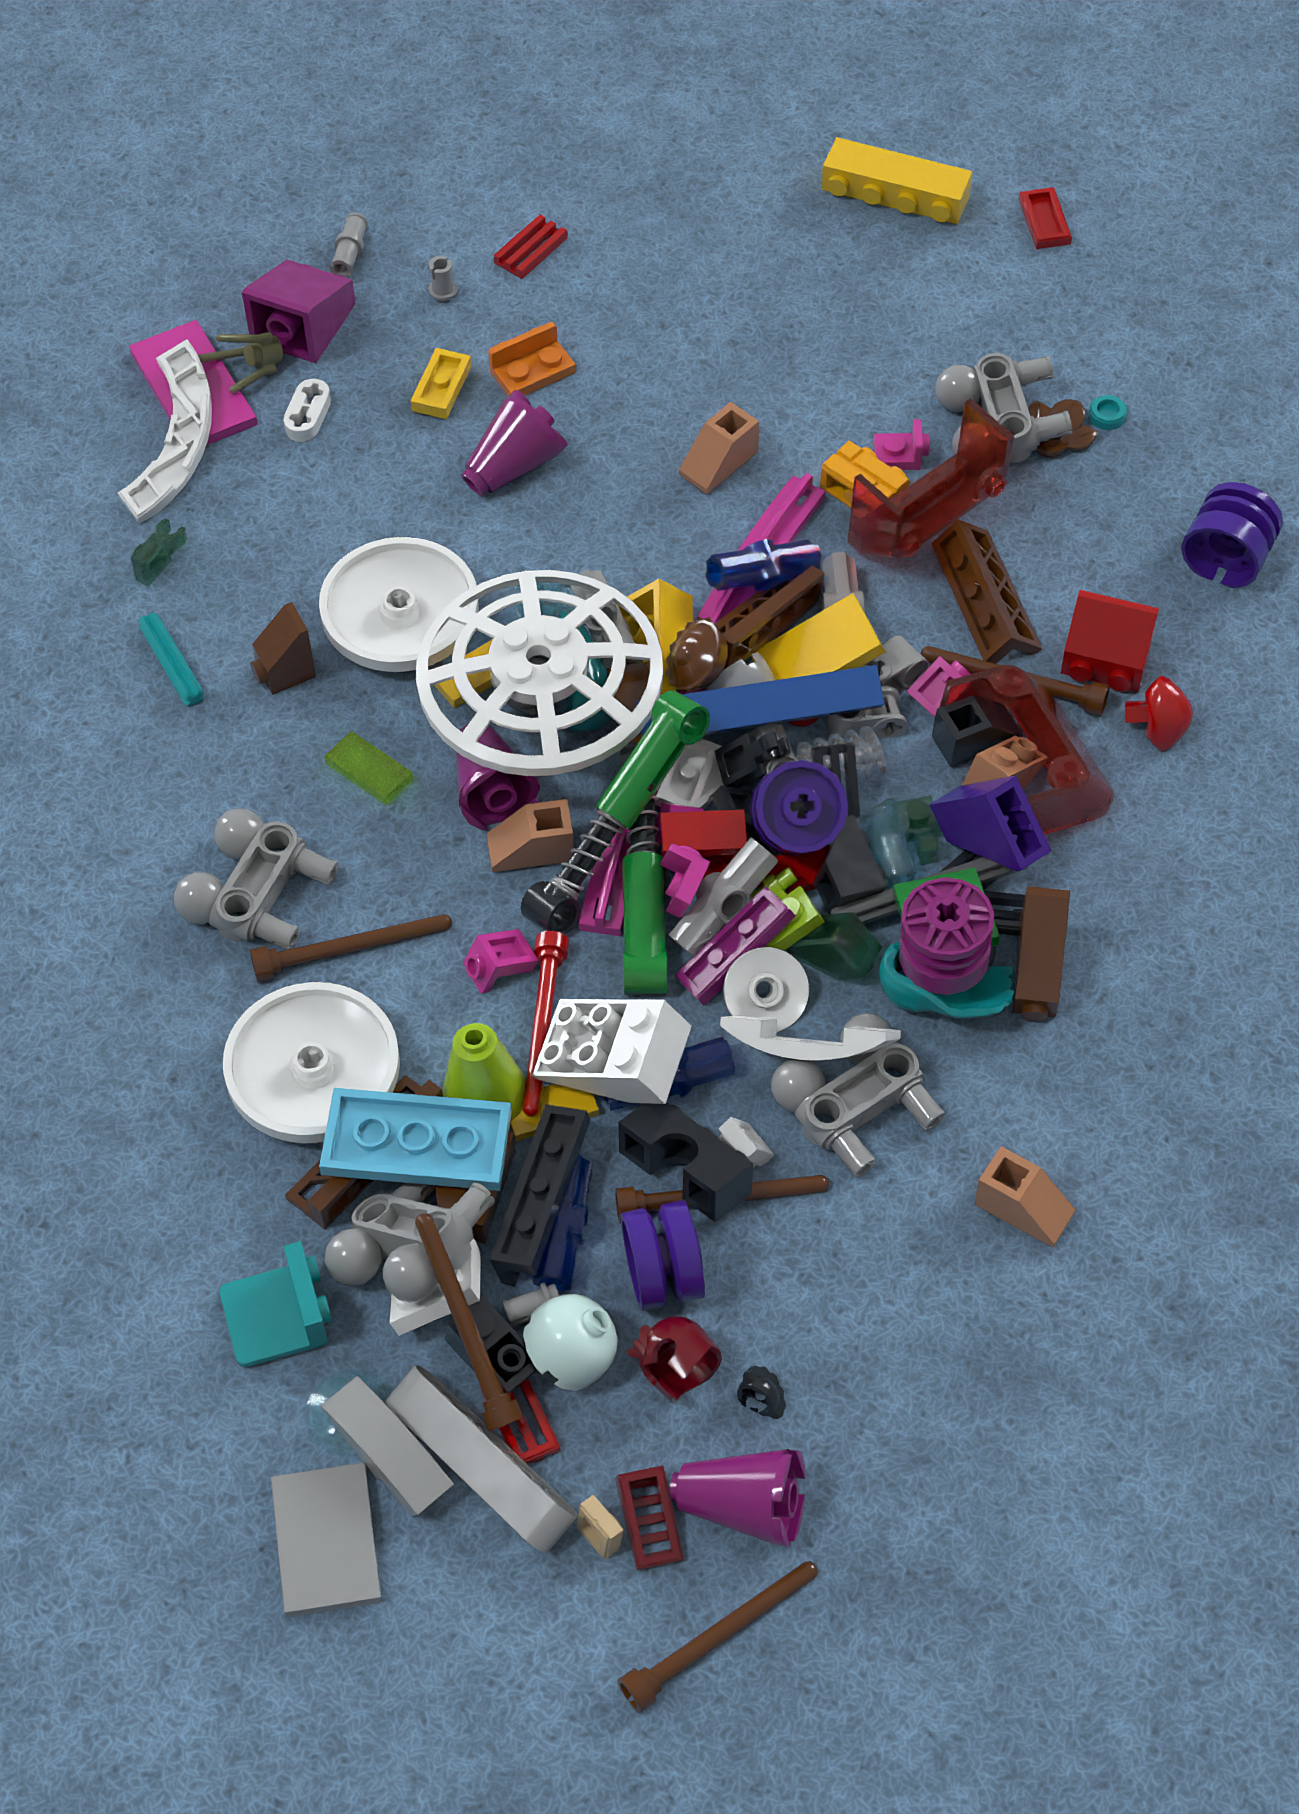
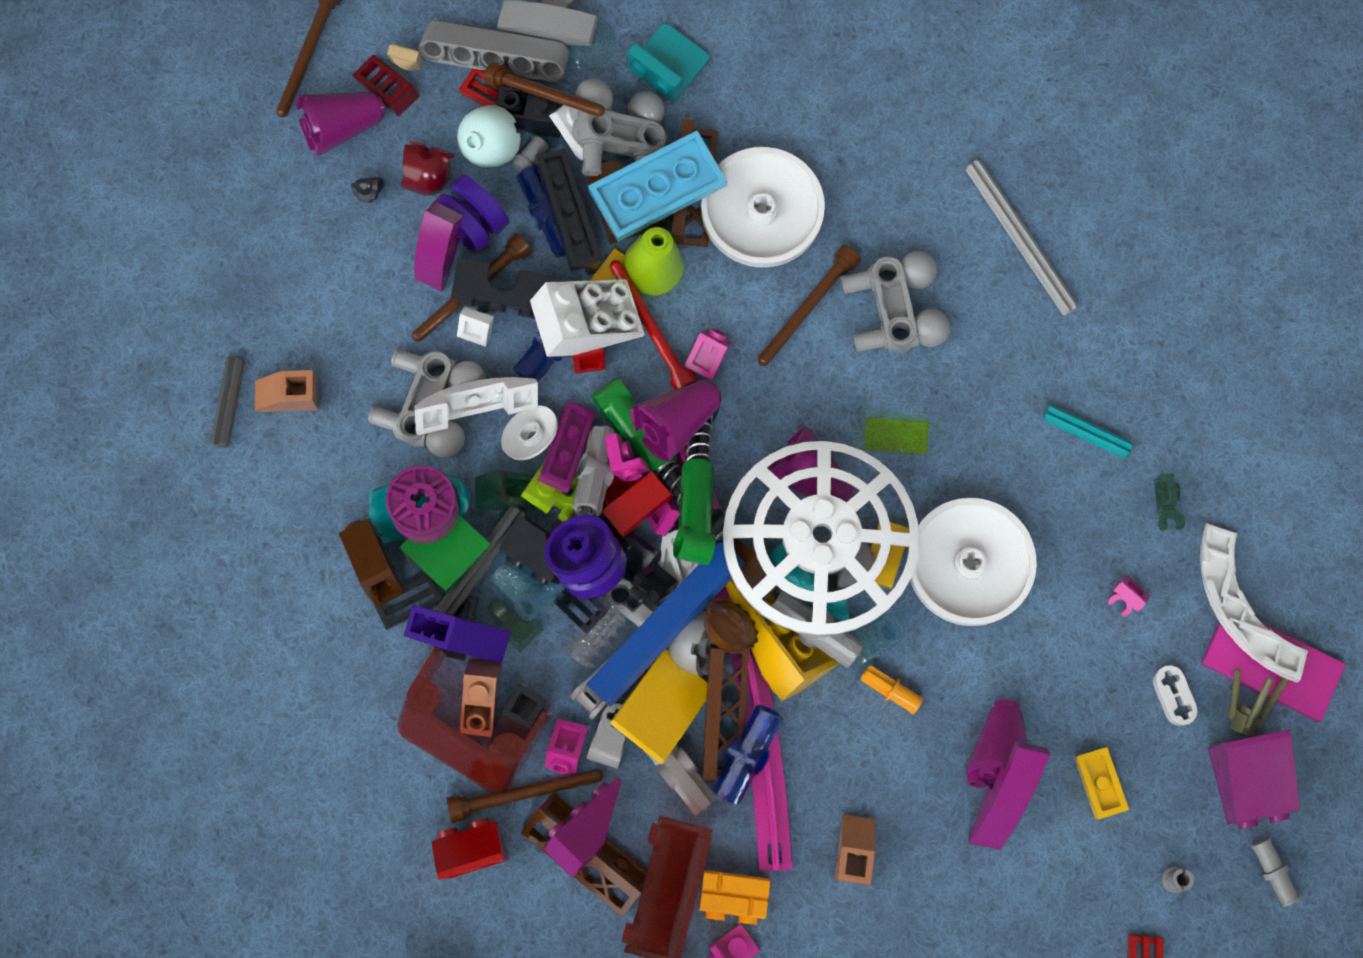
camera: 140 degrees right, 20 degrees up
(55, 877) = (1021, 237): none -> light grey axle
(270, 501) = (1131, 593): none -> tile
(283, 652) = (1012, 471): reddish brown slope -> none
(530, 361) = (1053, 848): orange bracket -> none
(532, 837) = (748, 443): nougat slope -> none
(540, 388) = (1009, 795): none -> magenta slope
(570, 553) = (891, 689): none -> light orange axle
(595, 867) = (675, 417): none -> magenta cone
(727, 1226) = (437, 245): none -> magenta slope
(977, 583) = (583, 836): none -> magenta slope
(1102, 1244) = (227, 402): none -> dark grey axle
(1166, 712) = (403, 823): red piece -> none

